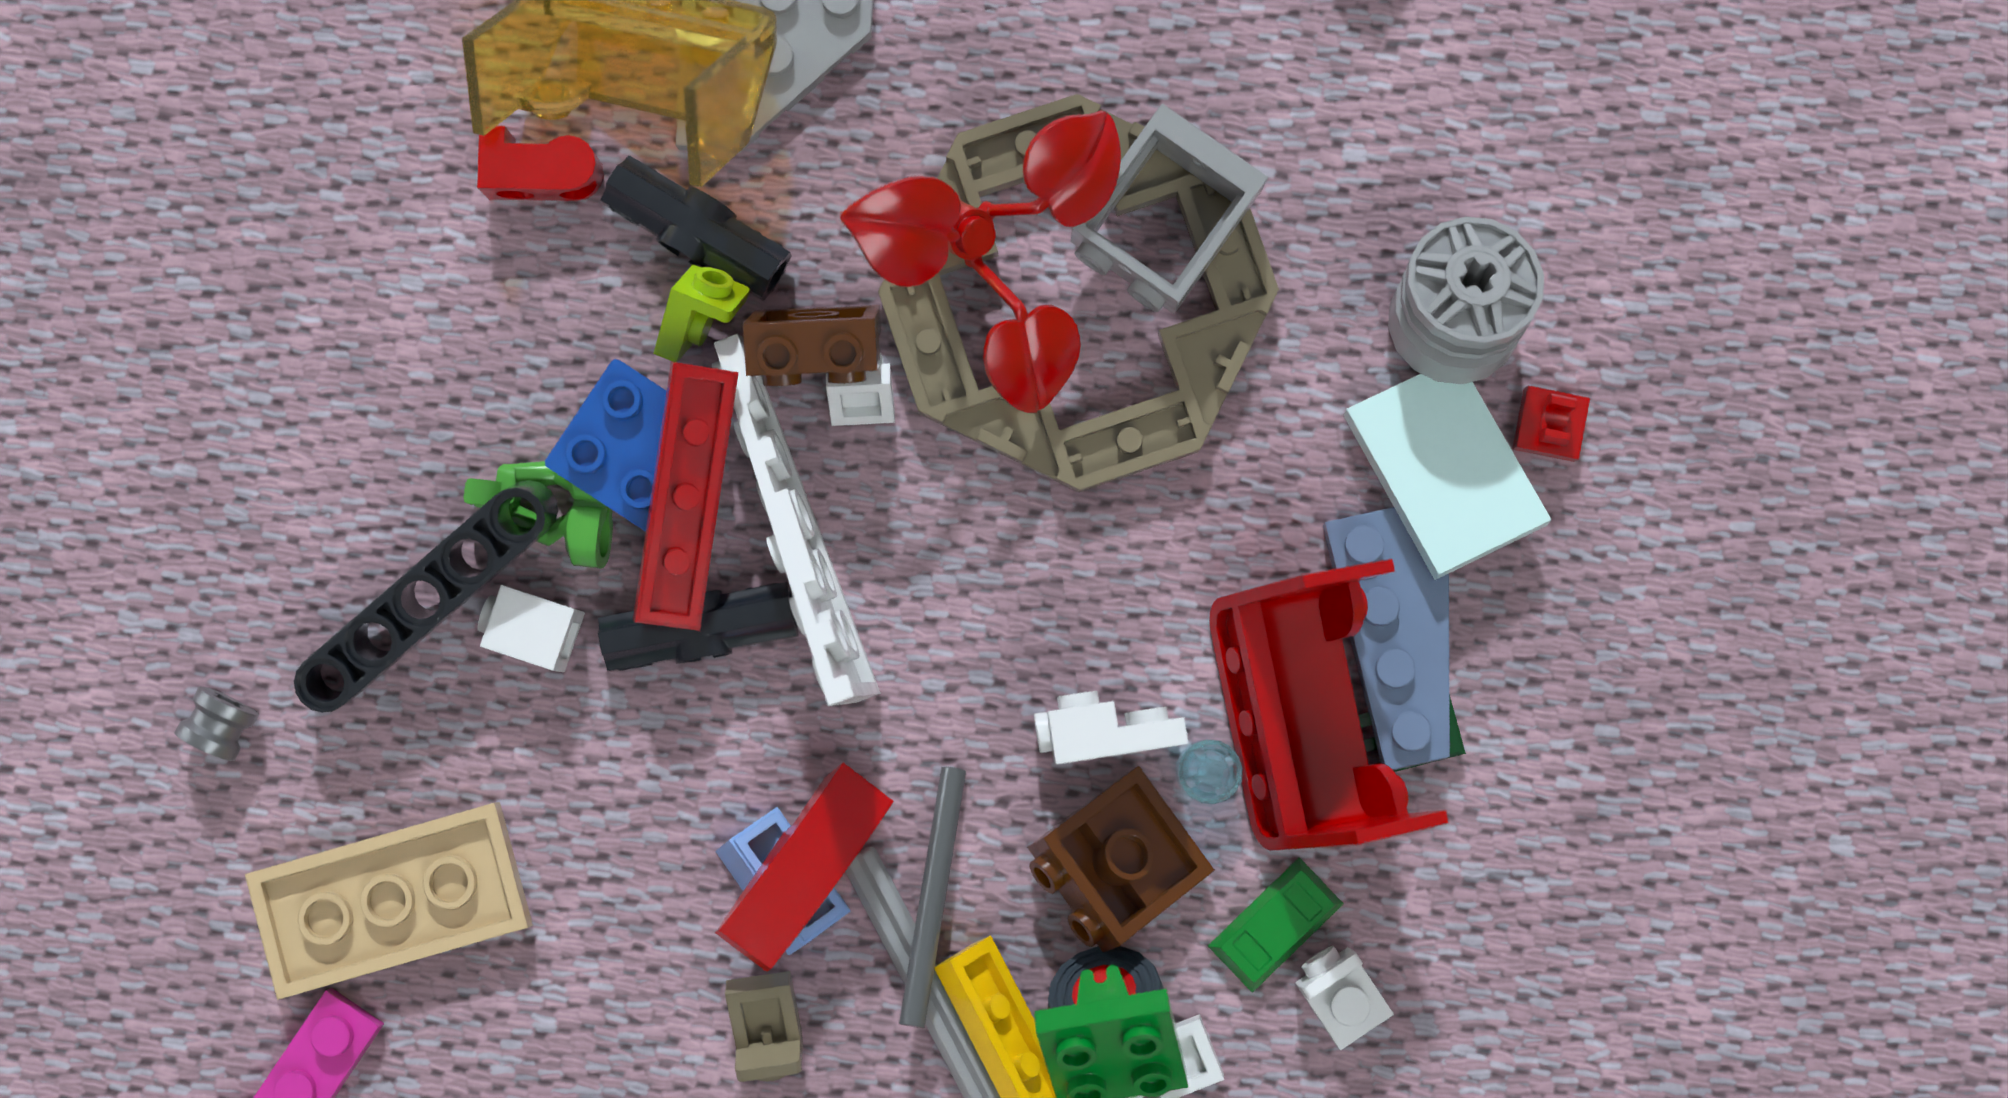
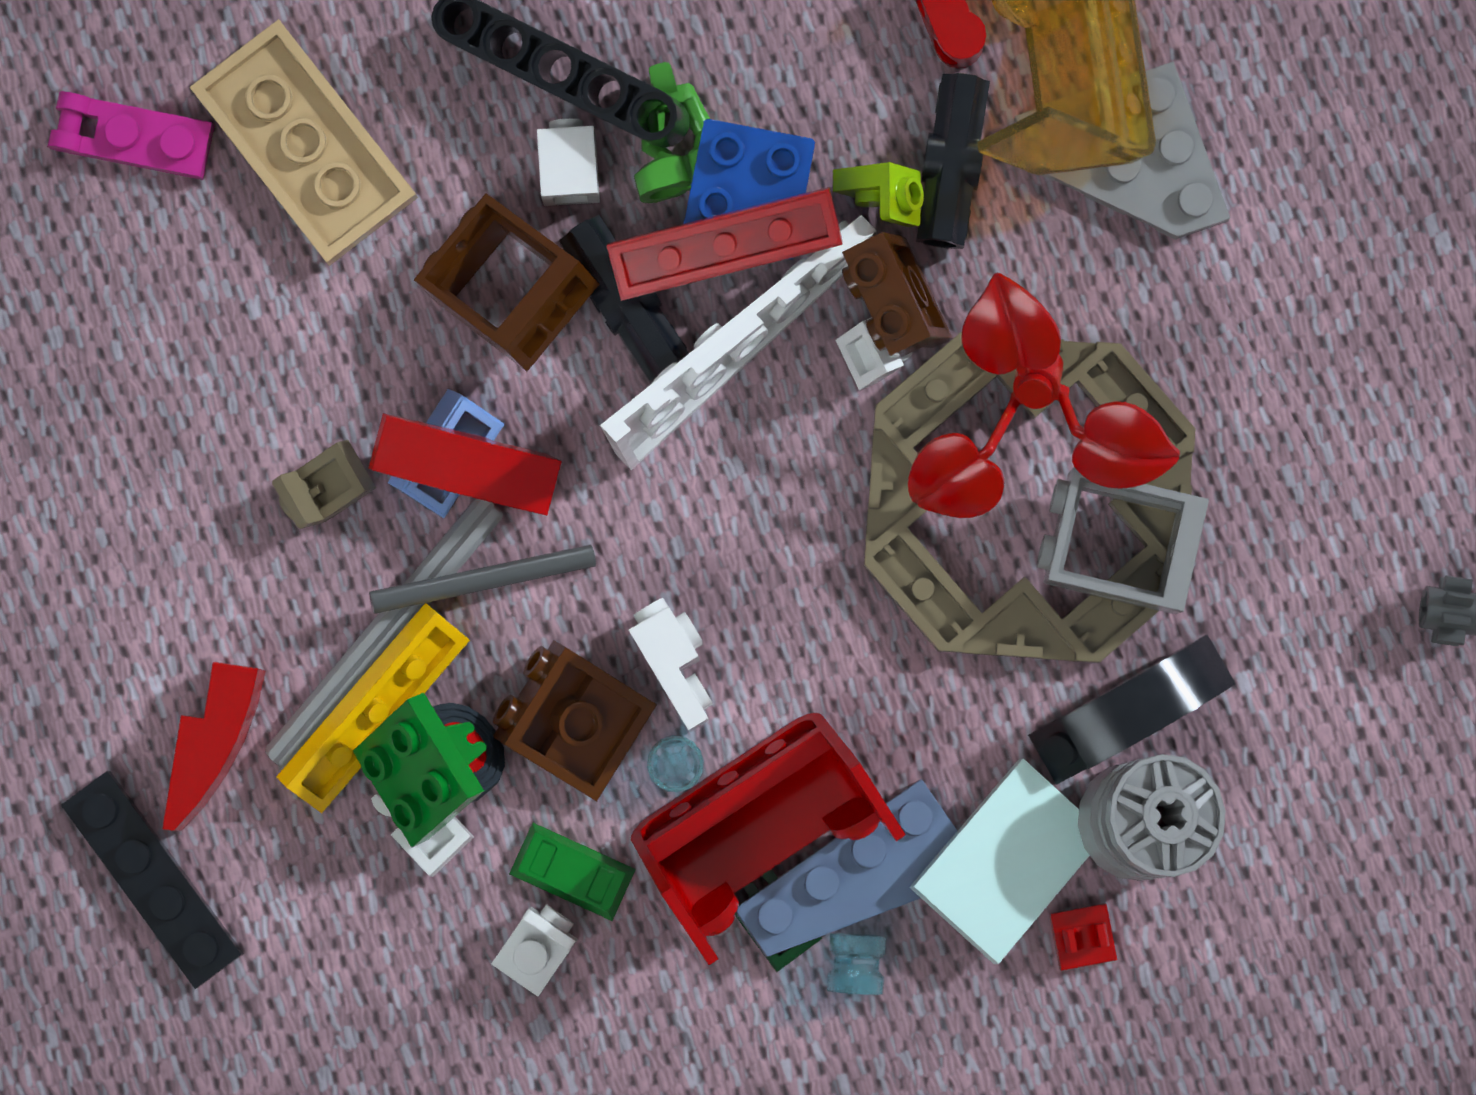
camera: 65 degrees right, 0 degrees up
(675, 718) = (541, 311): none -> reddish brown window
(1346, 275) = (1132, 710): none -> black arch
(1491, 667) = (856, 963): none -> clear light blue wheel

